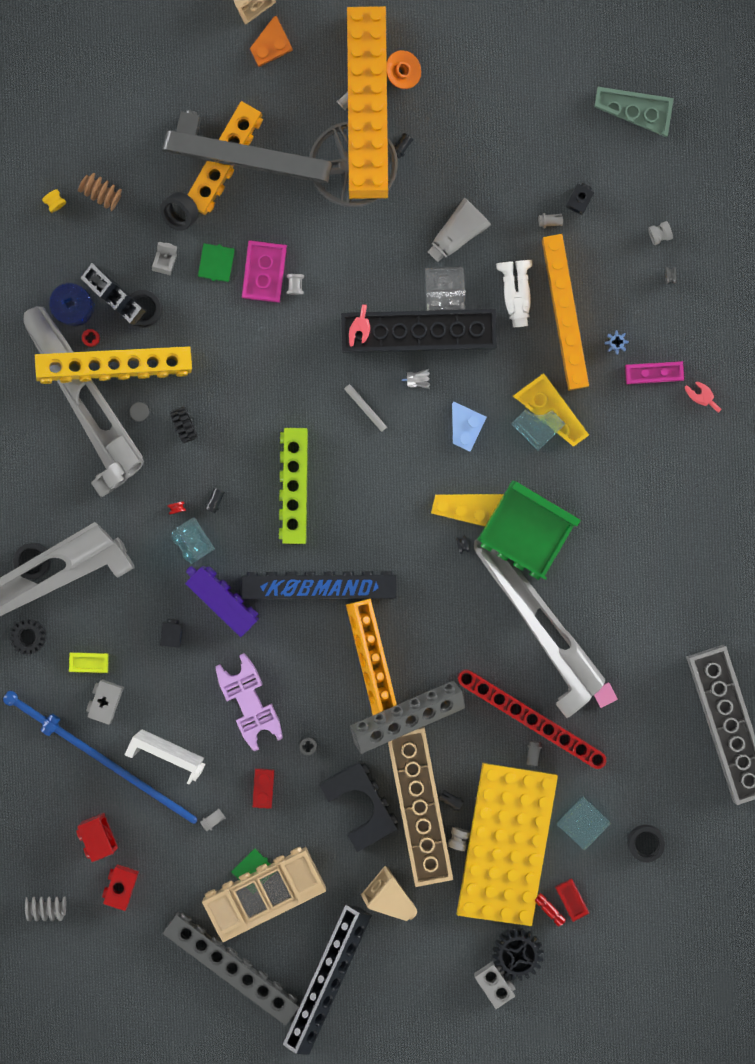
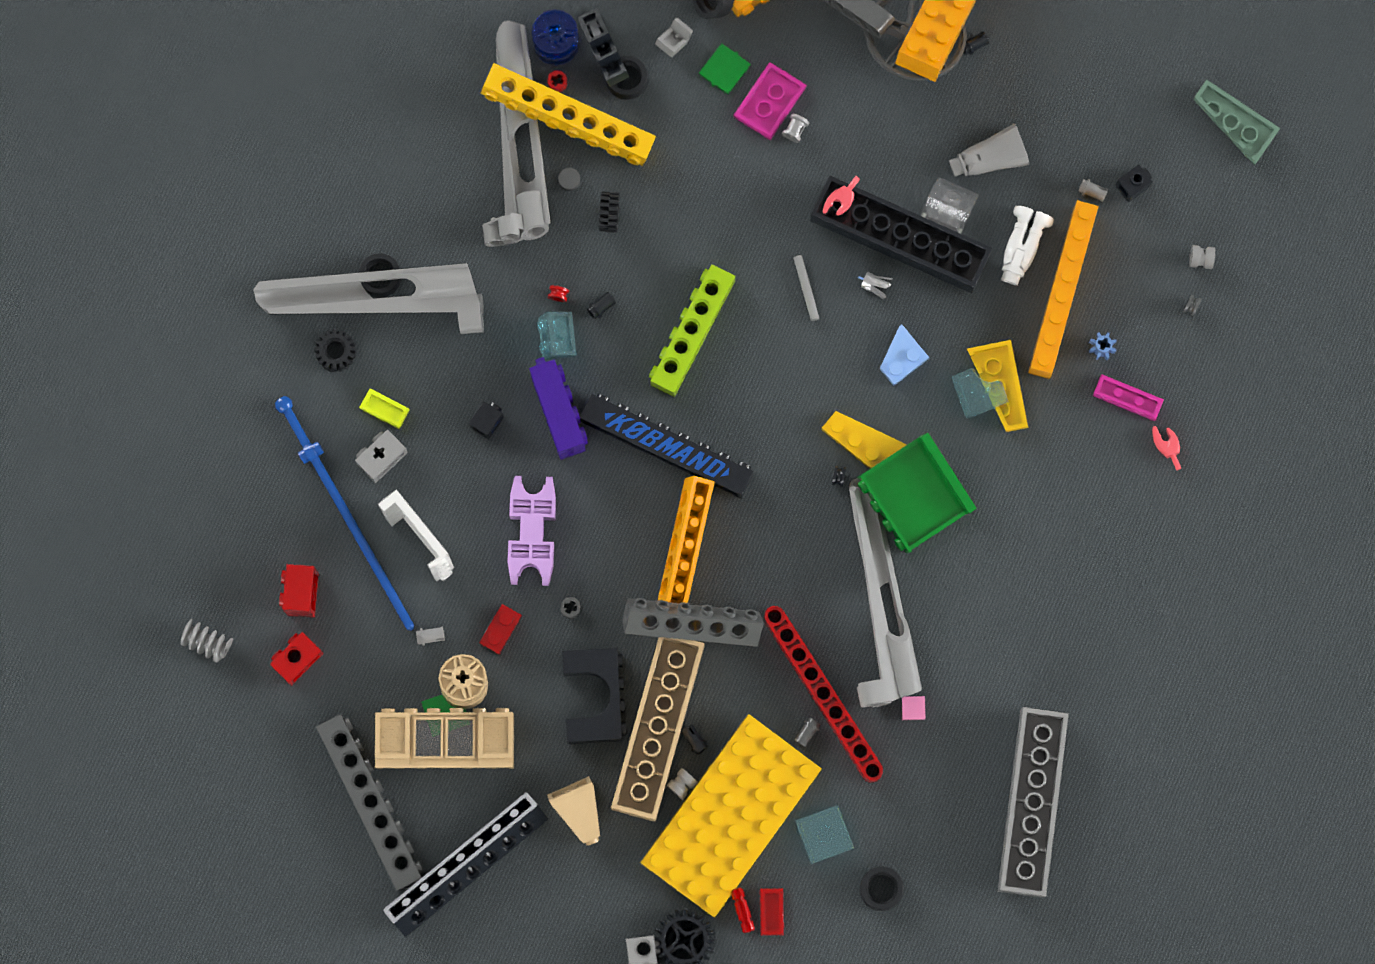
camera: 25 degrees right, 10 degrees down
(256, 833) = (475, 686): none -> tan wheel

